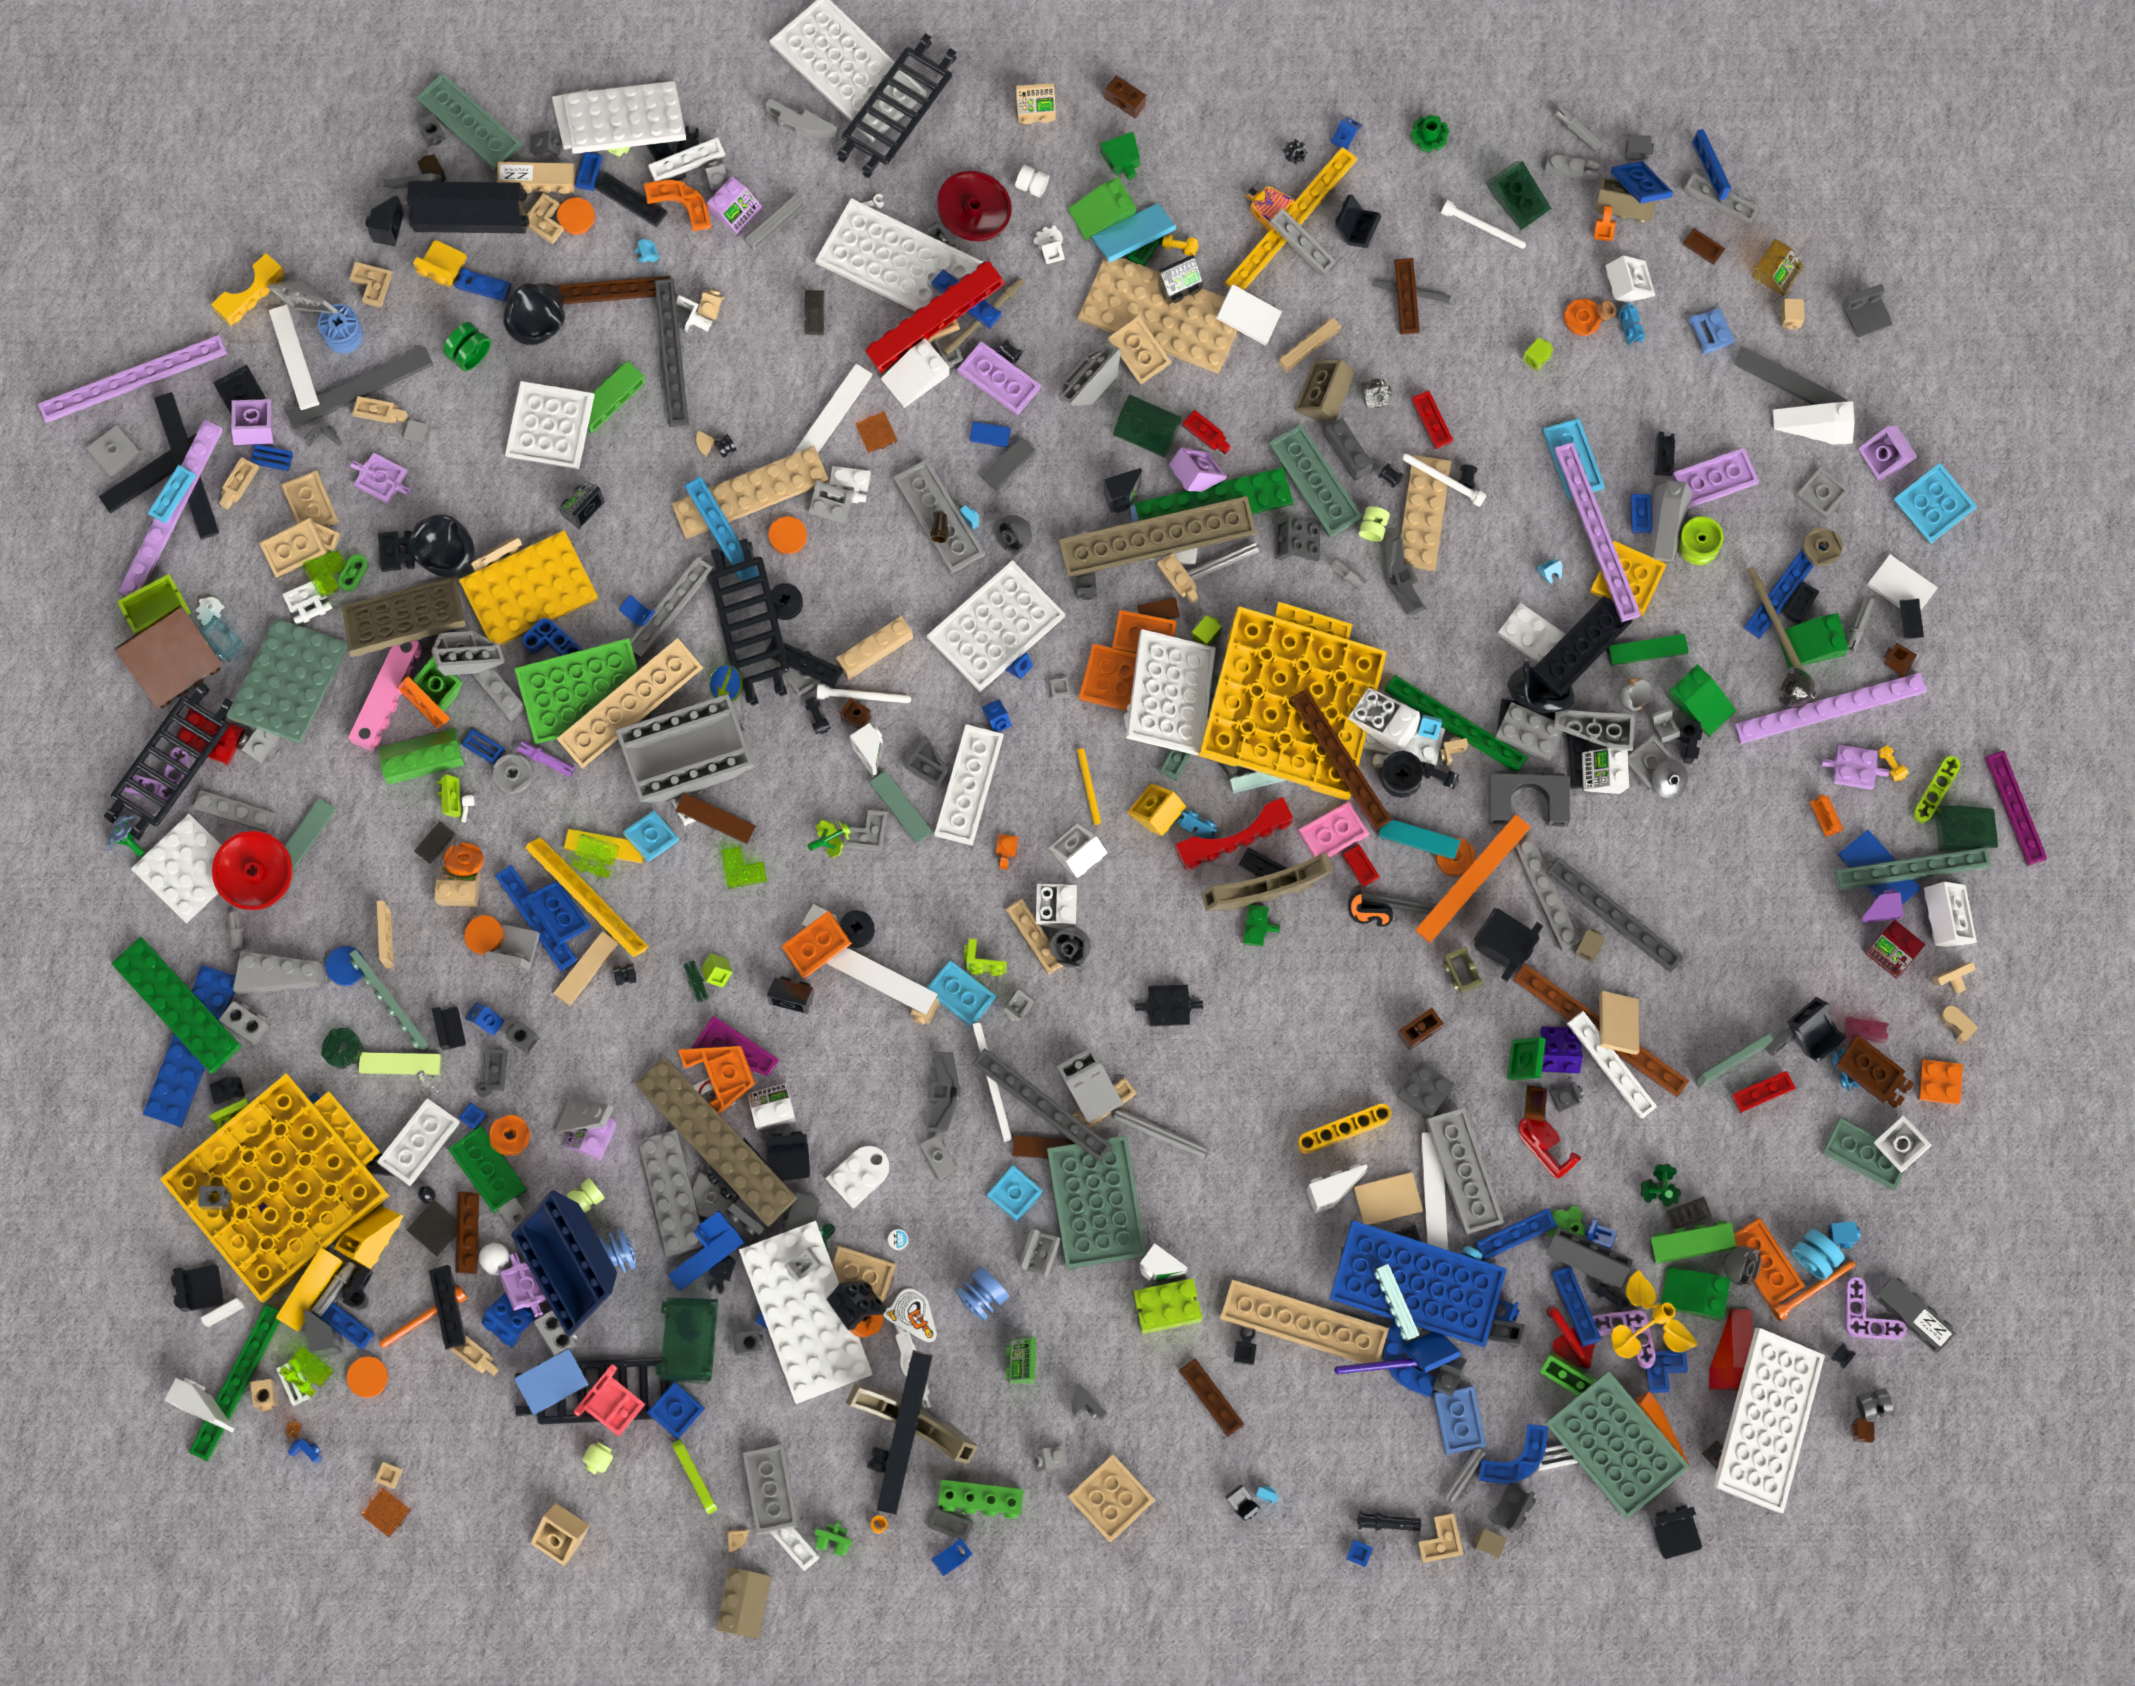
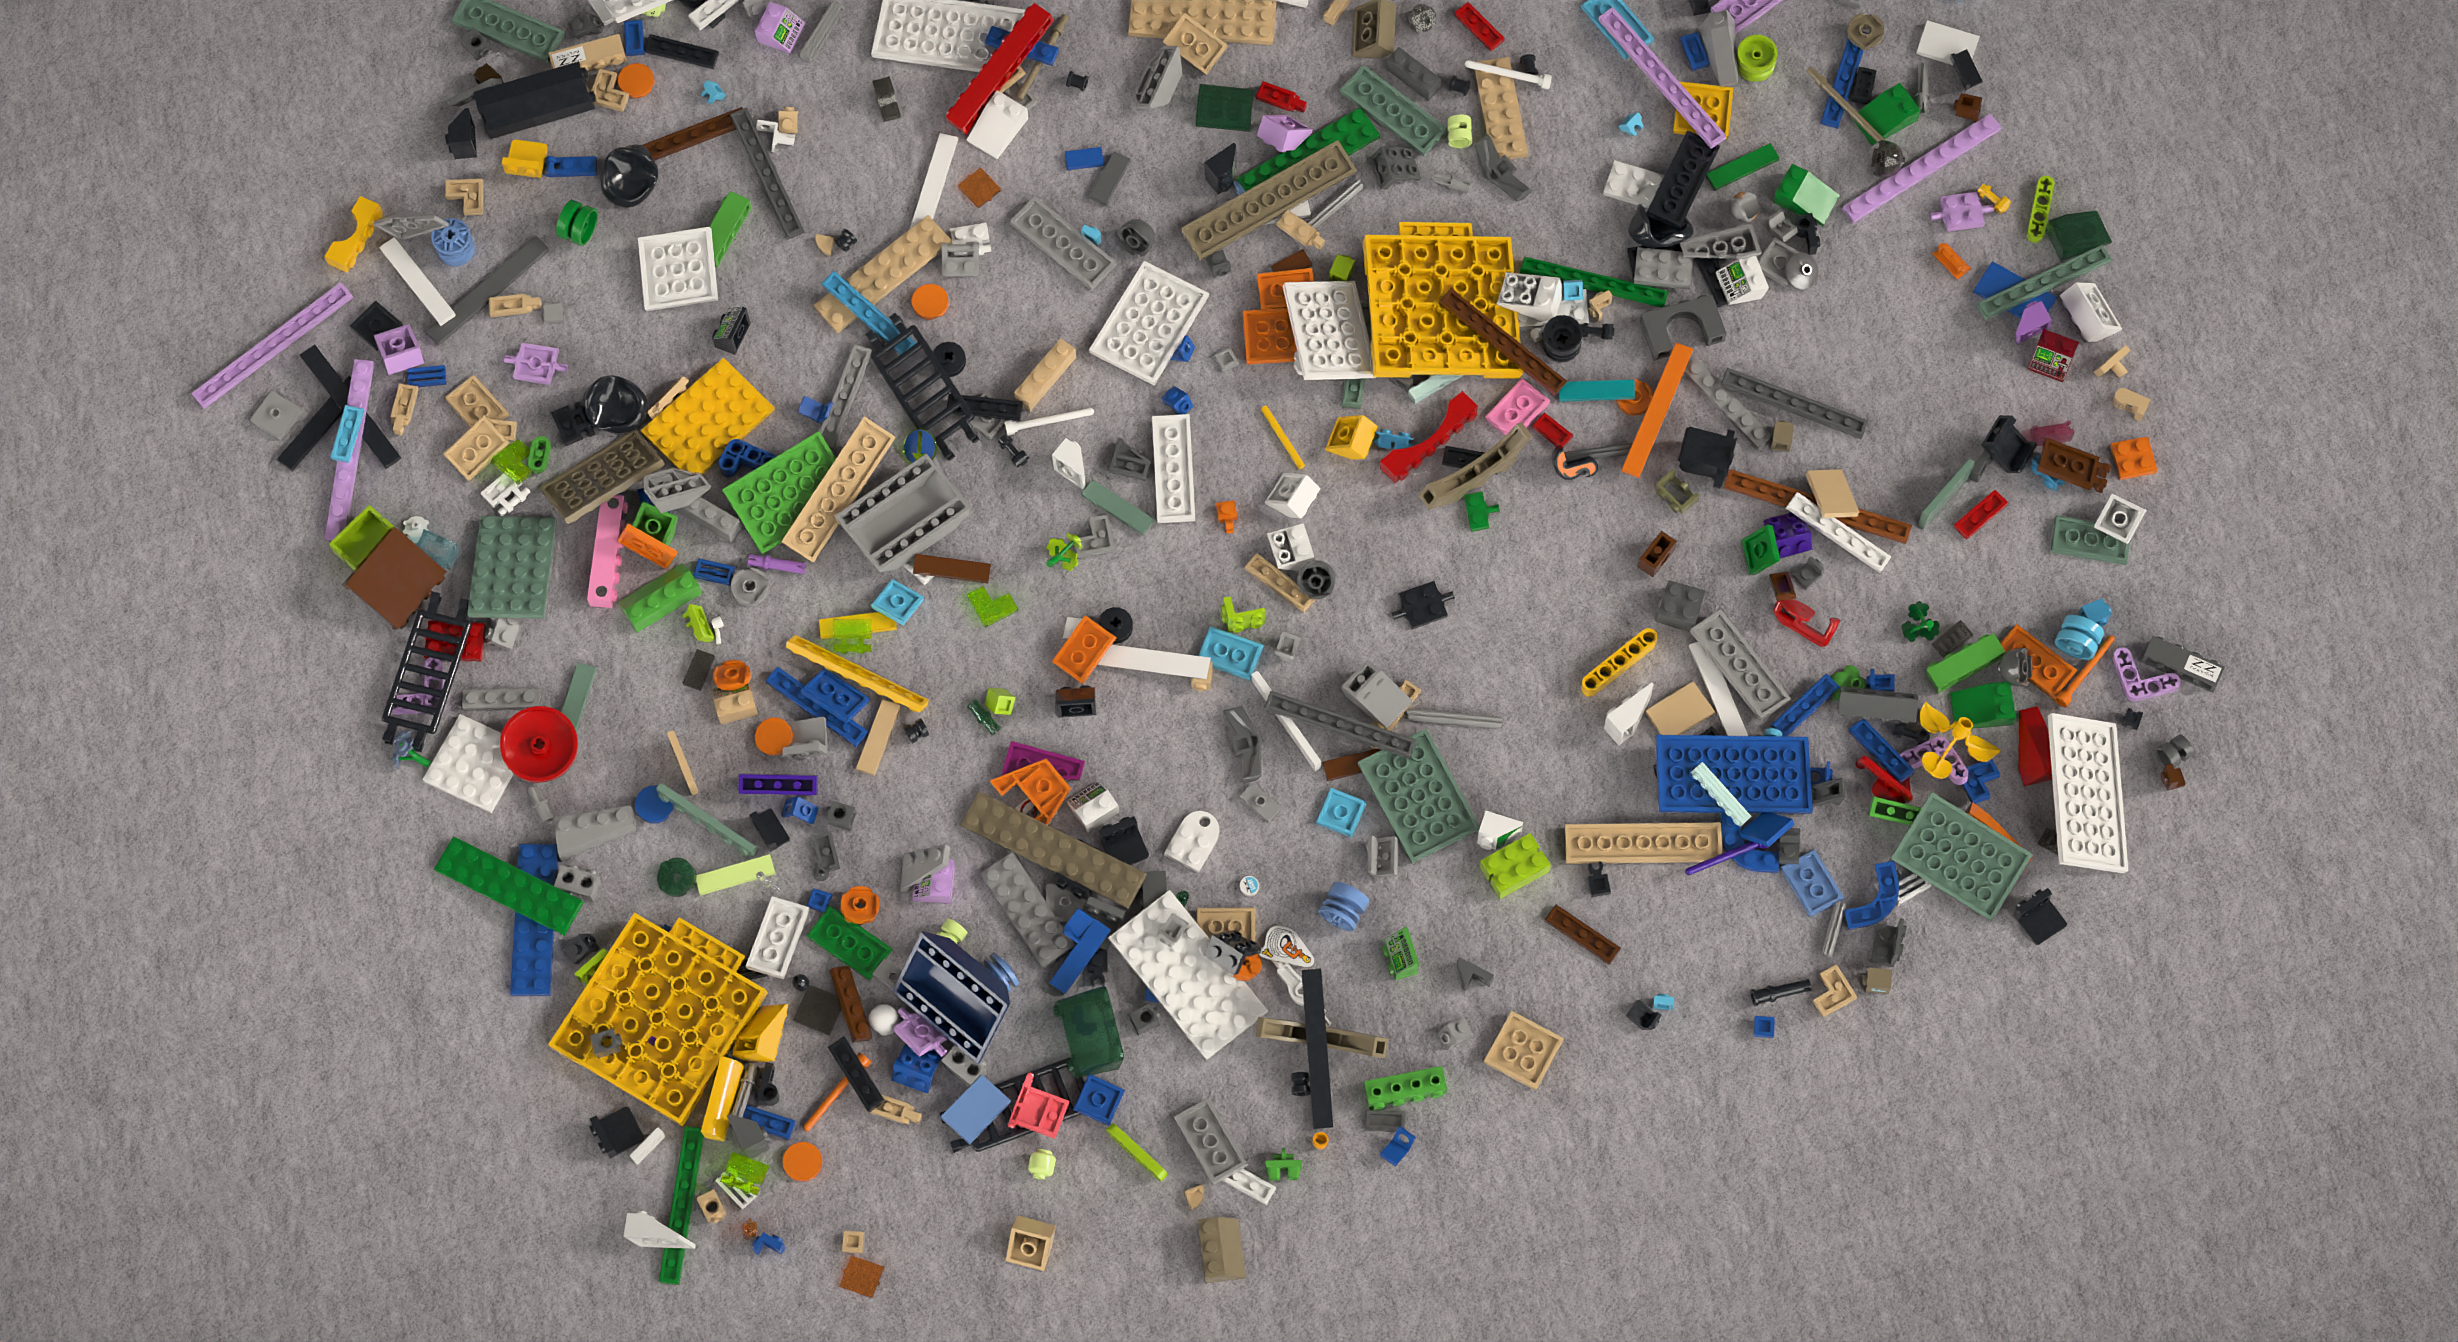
camera: 15 degrees left, 5 degrees down
(320, 428) = (472, 337): dark grey bracket -> none
(471, 986) = (778, 784): none -> dark purple brick
(679, 192) = (725, 31): orange plate -> none
(848, 716) = (1045, 443): reddish brown brick -> none
(940, 528) = (1068, 252): dark brown cone -> none
(999, 378) = (1075, 107): lavender plate -> none
(2016, 808) = (2115, 204): magenta tile -> none

